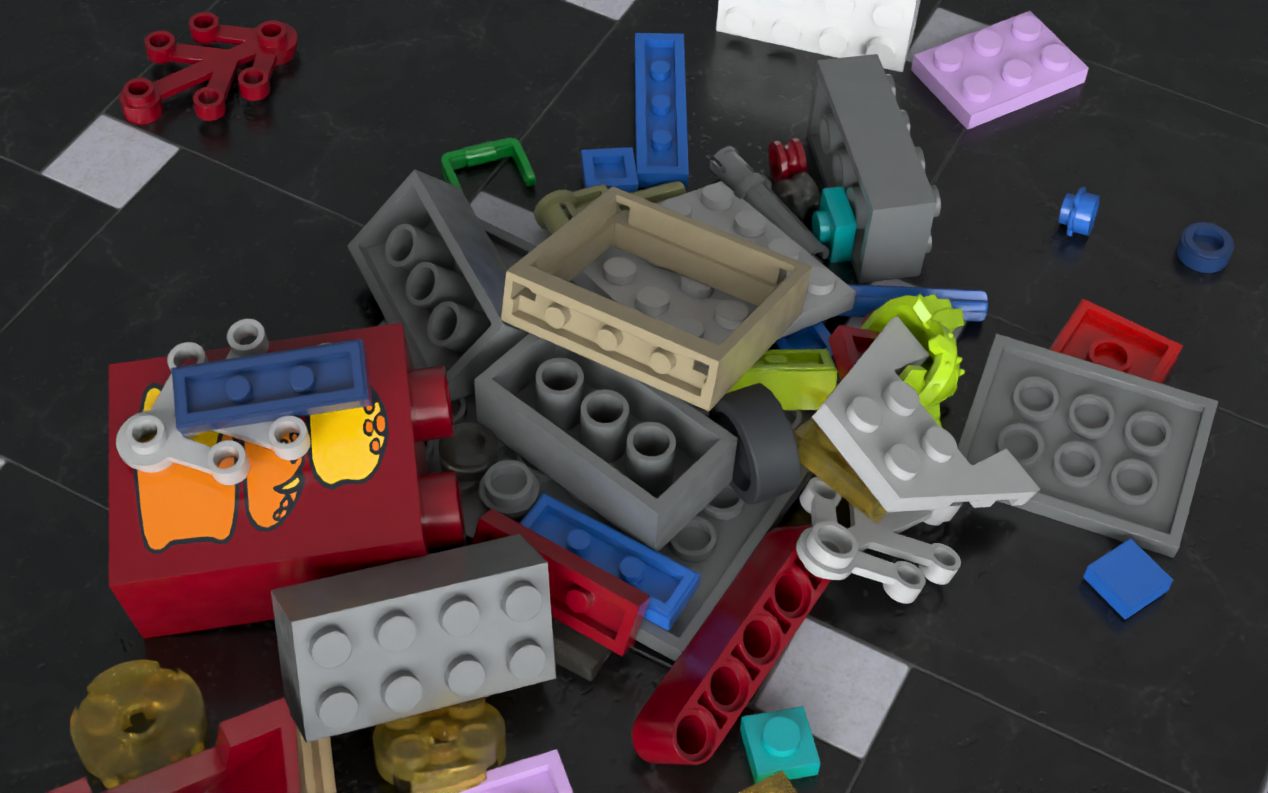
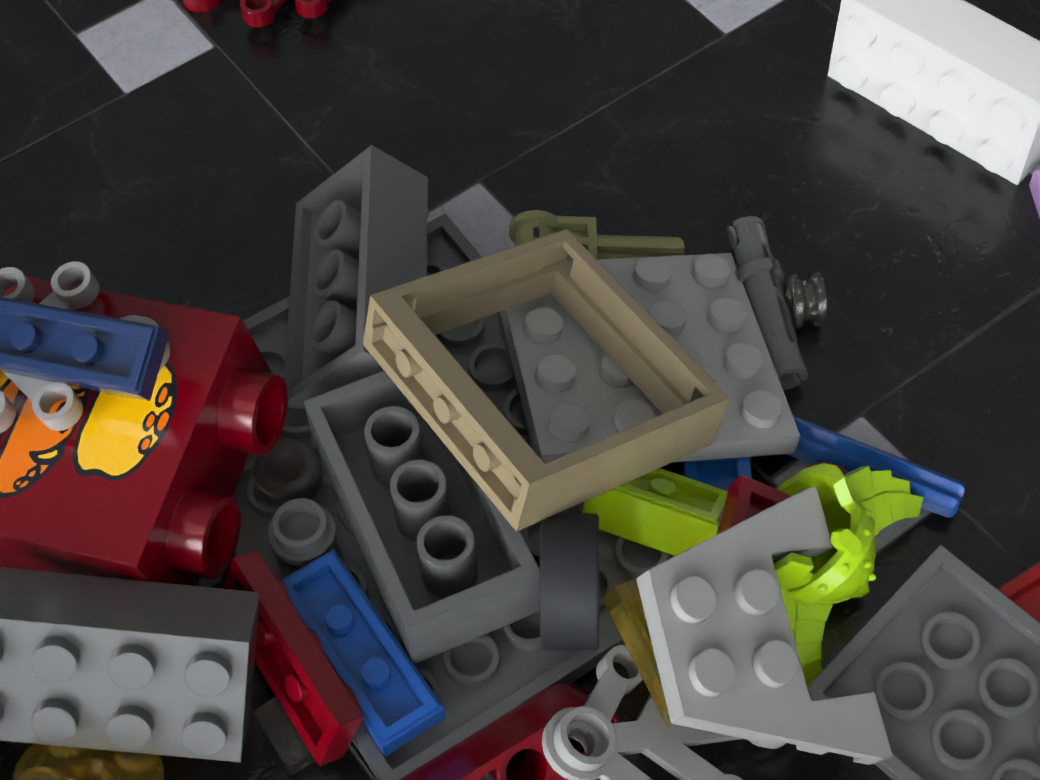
camera: 30 degrees right, 5 degrees up
(486, 153) = (492, 142): green piece -> none
(609, 167) = (615, 204): blue plate -> none
(660, 110) = (708, 151): blue plate -> none
(786, 159) = (816, 252): dark red bush -> none
(835, 224) = (827, 345): teal plate -> none
(867, 148) = (900, 294): dark grey brick -> none

